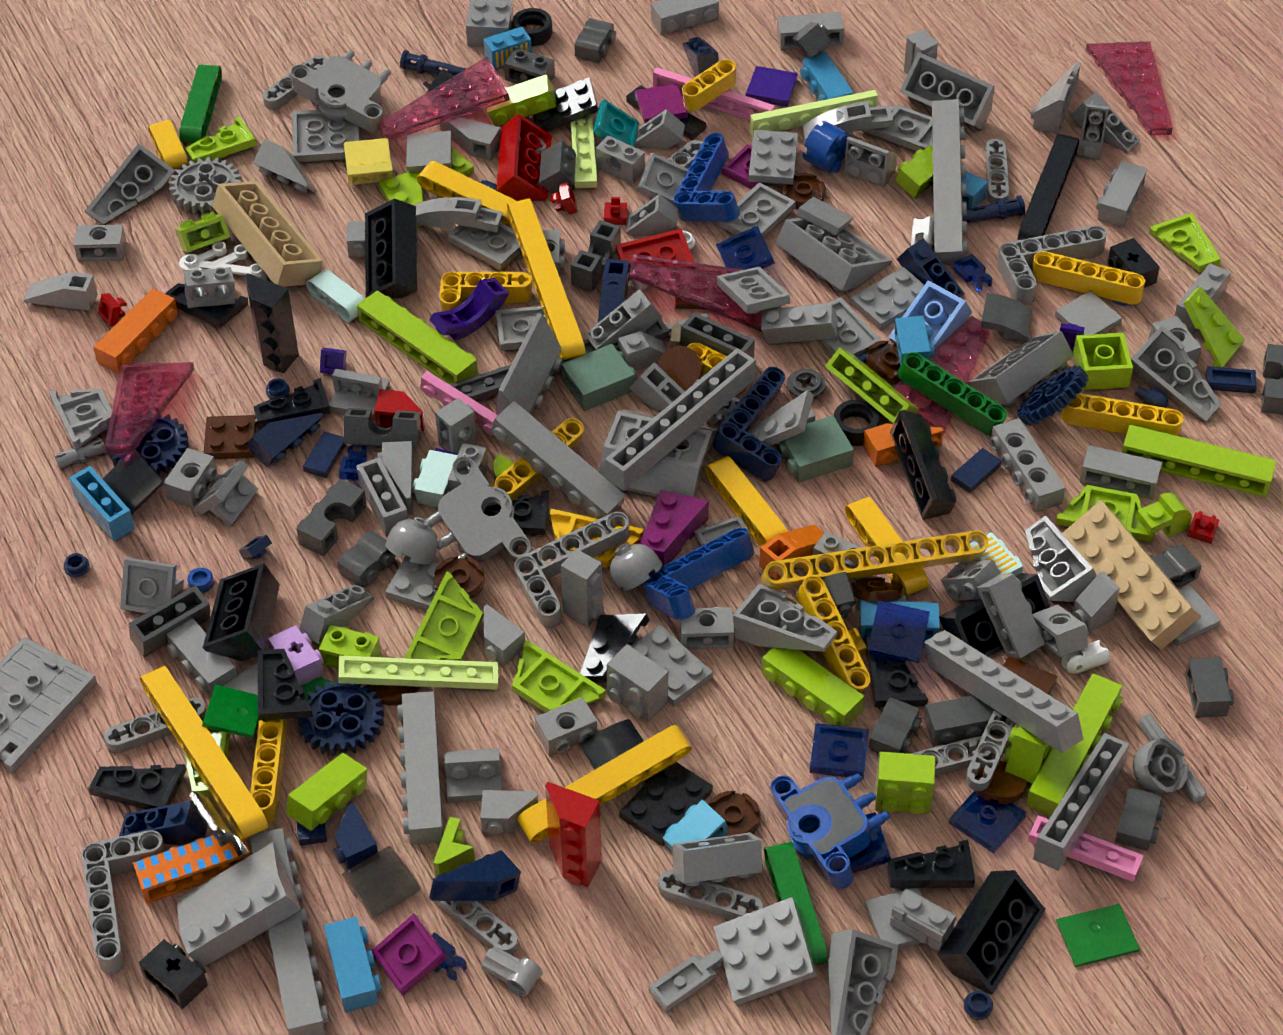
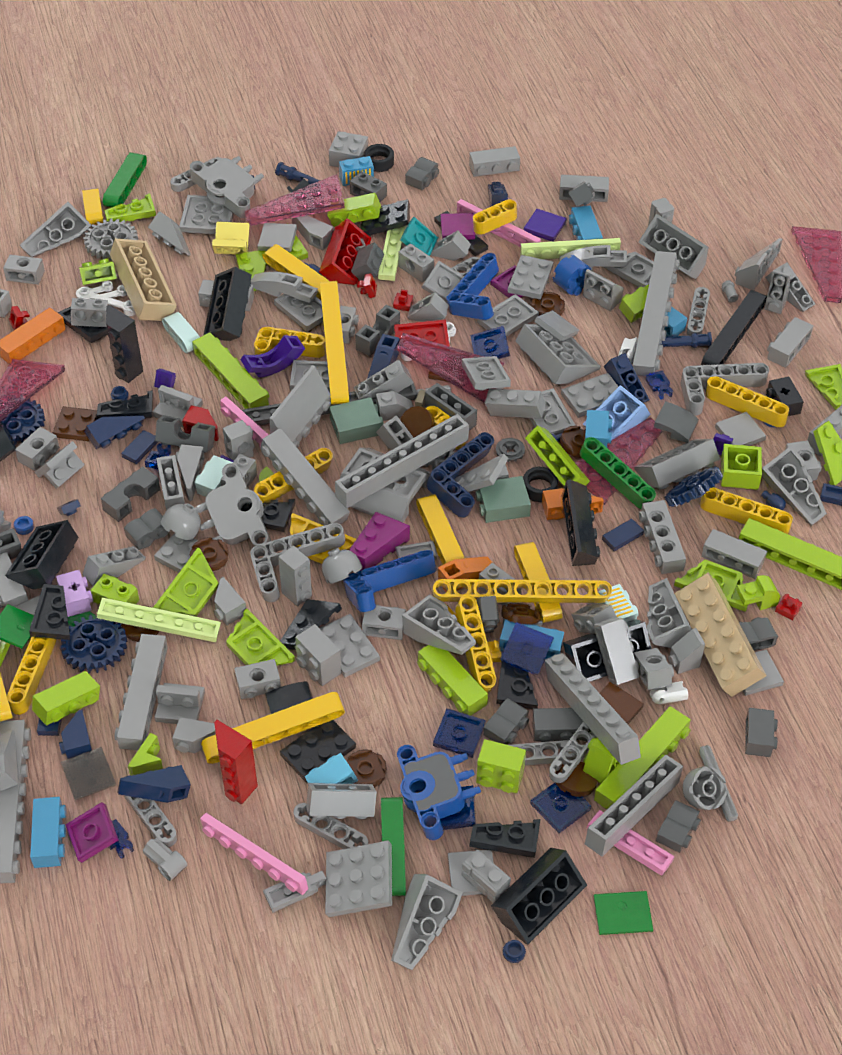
camera: 10 degrees right, 0 degrees up
(625, 943) = (259, 858): none -> bright pink plate
(1027, 135) = (728, 288): none -> light grey pin

